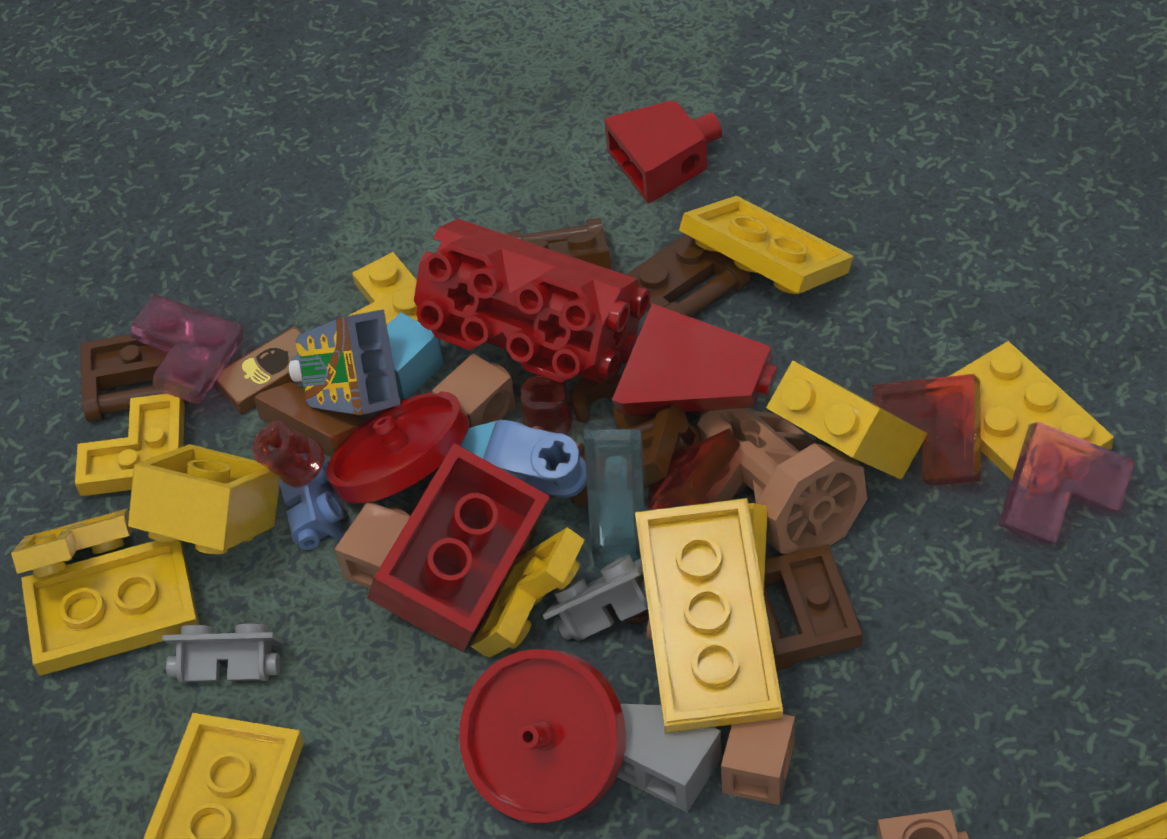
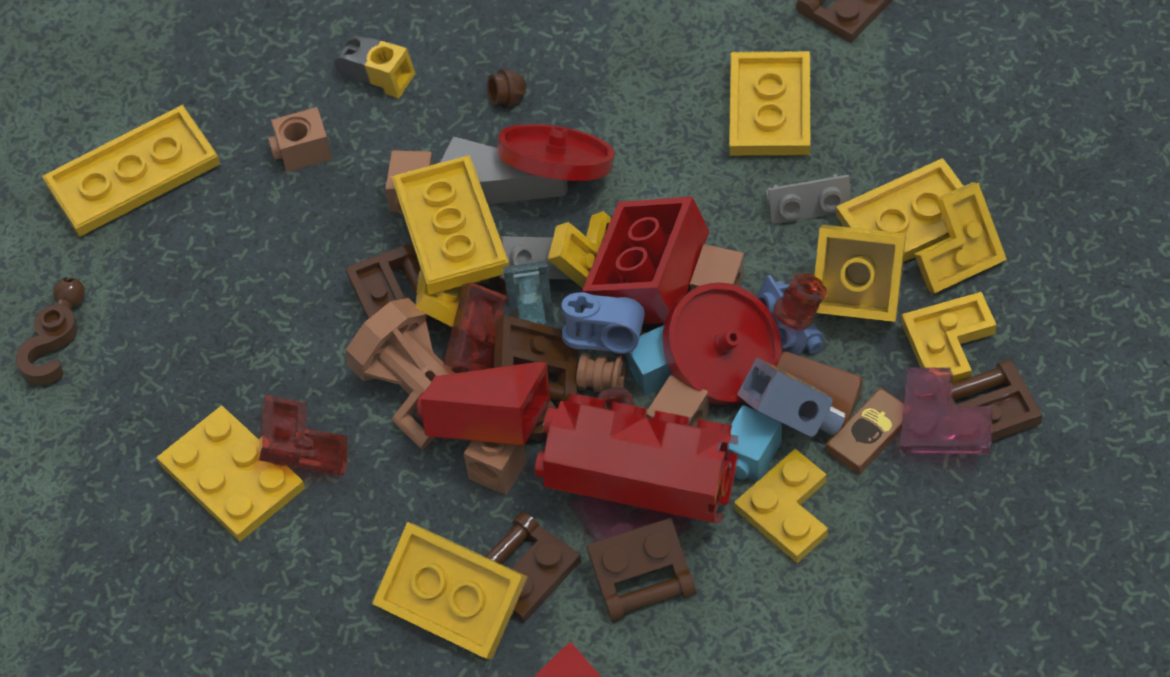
camera: 170 degrees right, 5 degrees up
(846, 420) = (361, 393): yellow brick -> none
(1052, 471) = (202, 404): clear pink plate -> none

